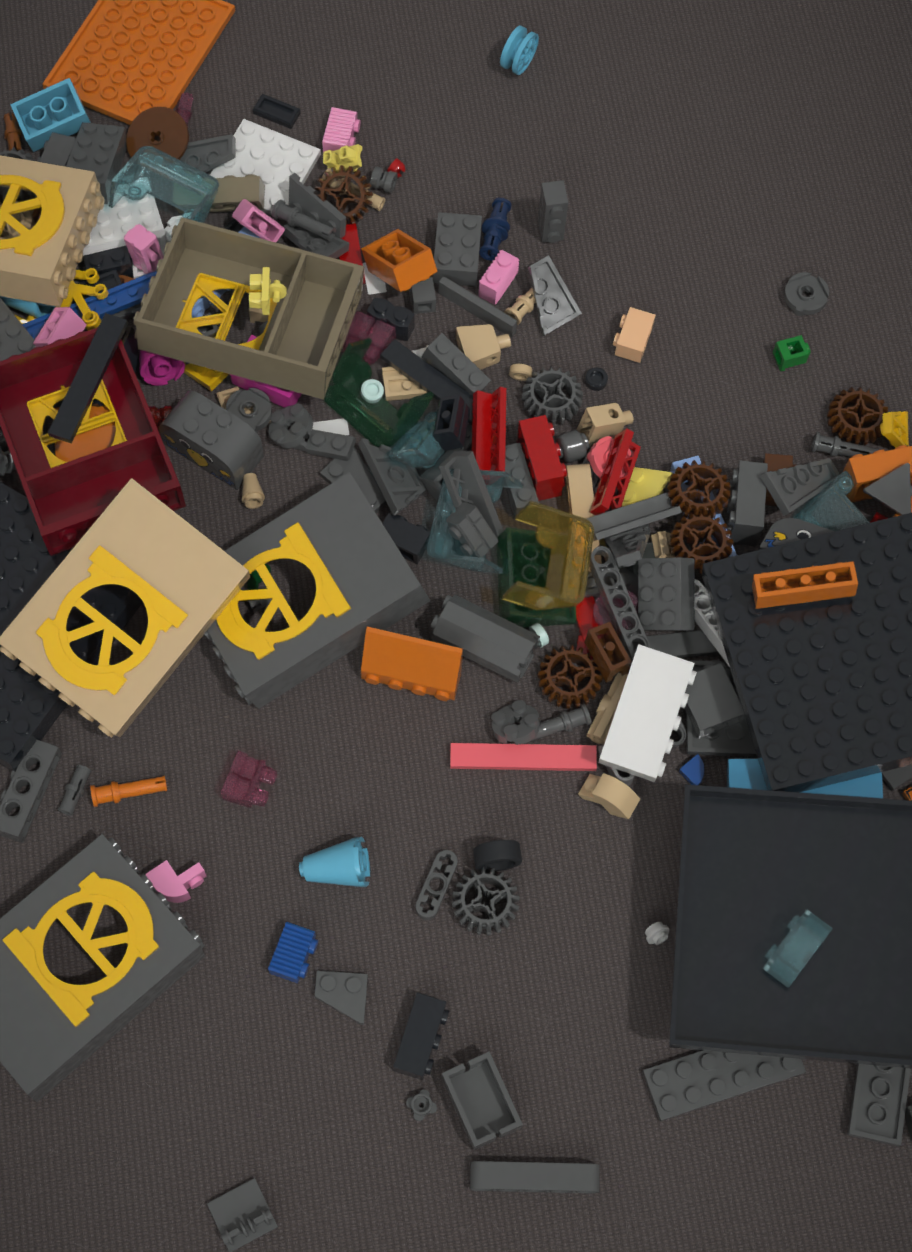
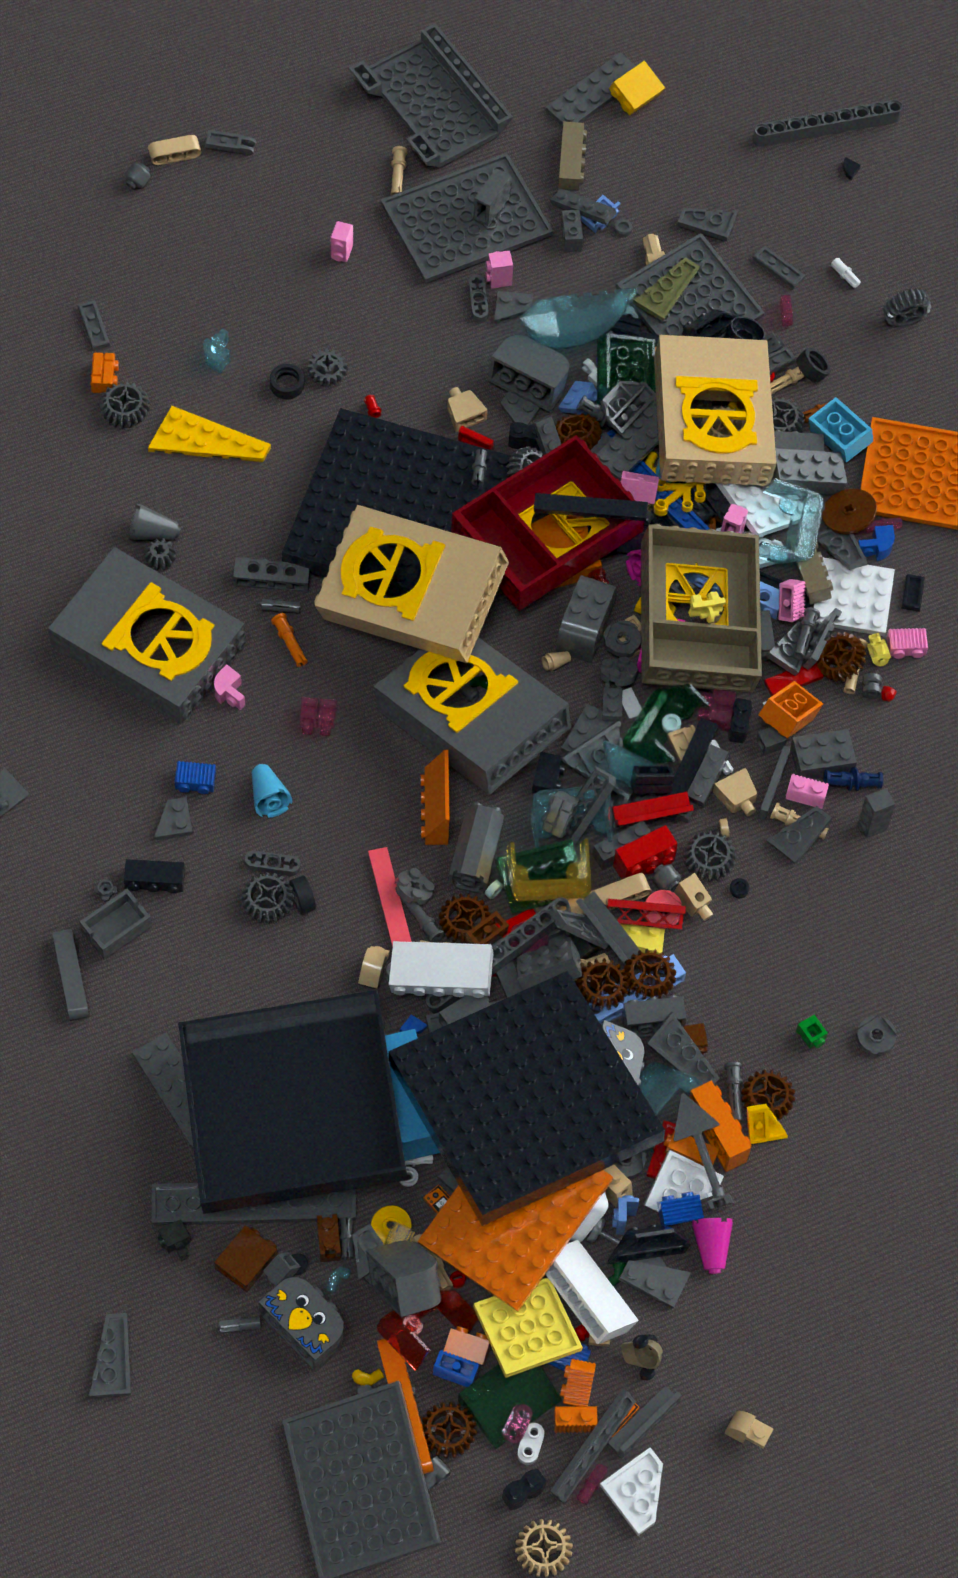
camera: 75 degrees right, 5 degrees down
(205, 119) = (881, 544): none -> blue brick
(634, 335) = (786, 905): light nougat brick -> none
(797, 947) = (265, 1091): clear light blue brick -> none
(804, 585) = (559, 1034): orange brick -> none

